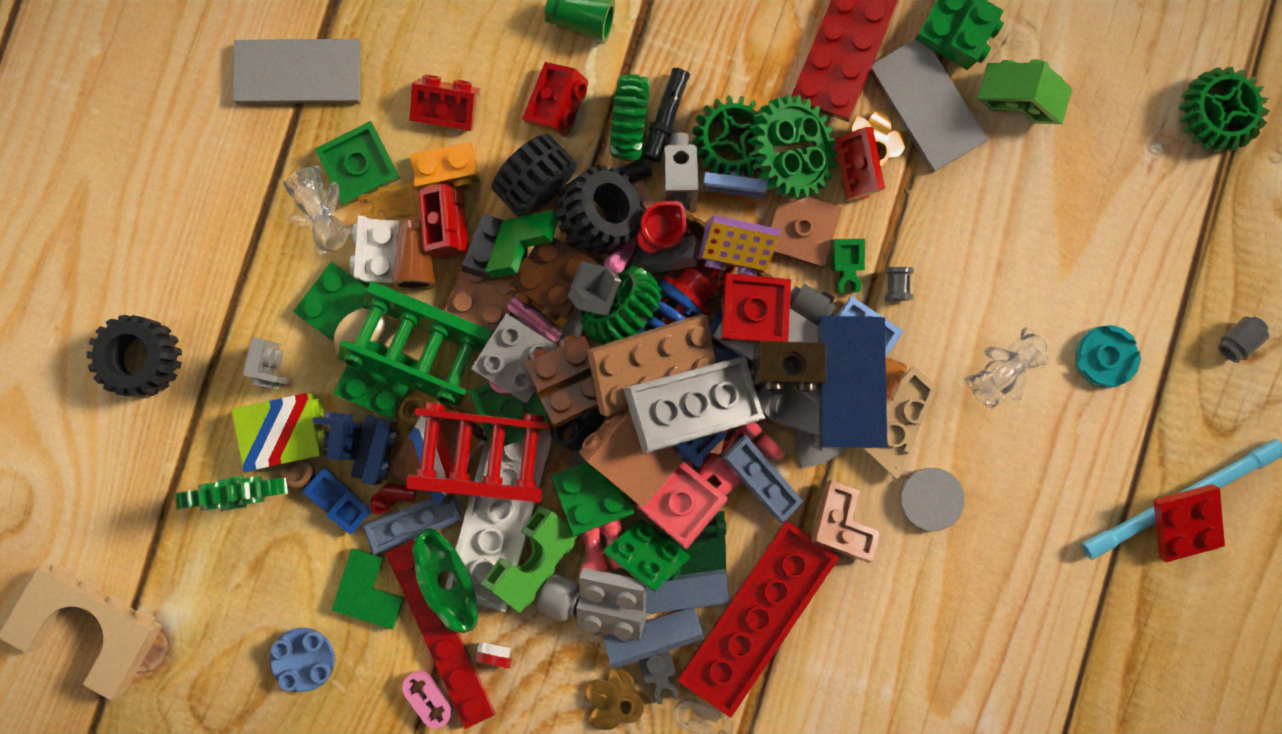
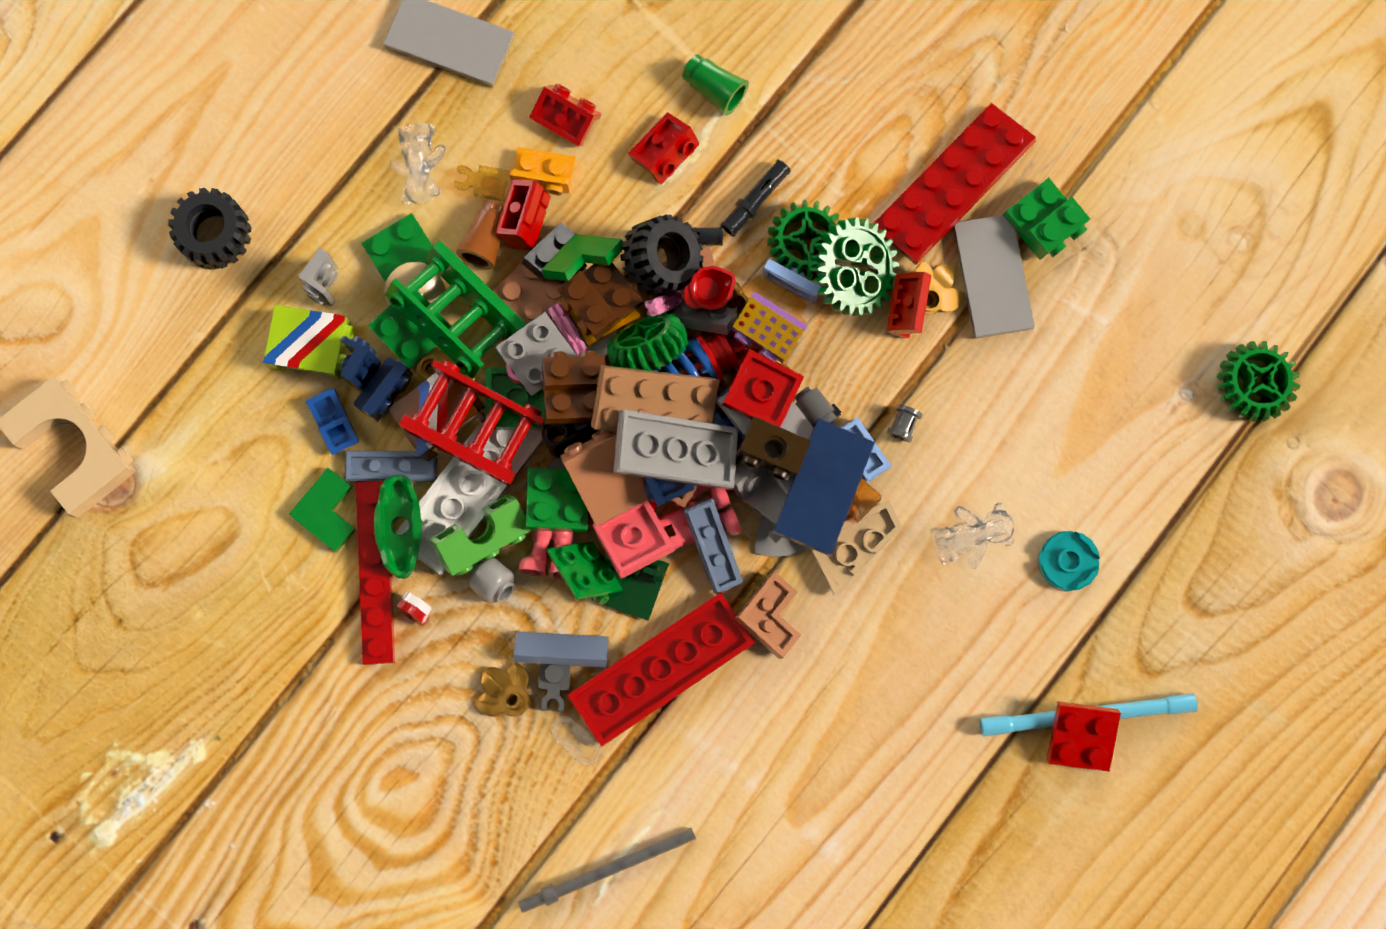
camera: 25 degrees right, 5 degrees down
(230, 493) = (246, 374): green gear -> none
(297, 473) = (307, 383): medium nougat tile -> none
(302, 659) = (245, 547): medium blue dish -> none
(357, 163) = (469, 137): green plate -> none
(374, 250) = (453, 216): white bracket -> none
(389, 495) = (380, 434): red arm -> none
(421, 703) = (332, 626): bright pink beam -> none
(533, 175) = (616, 204): black tyre -> none
(594, 288) = (629, 317): dark grey panel -> none
(611, 605) = (535, 602): light grey plate -> none
(629, 117) = (721, 186): green gear -> none
(681, 171) = (747, 251): light grey torso -> none
(689, 592) = (600, 619): sand blue tile -> none
(805, 229) = (838, 343): nougat plate -> none
(847, 257) = (867, 383): green plate -> none
(932, 499) = (859, 625): light grey tile -> none
(1026, 89) = (1084, 295): bright green brick -> none
(1244, 339) = (1198, 591): dark grey brick -> none

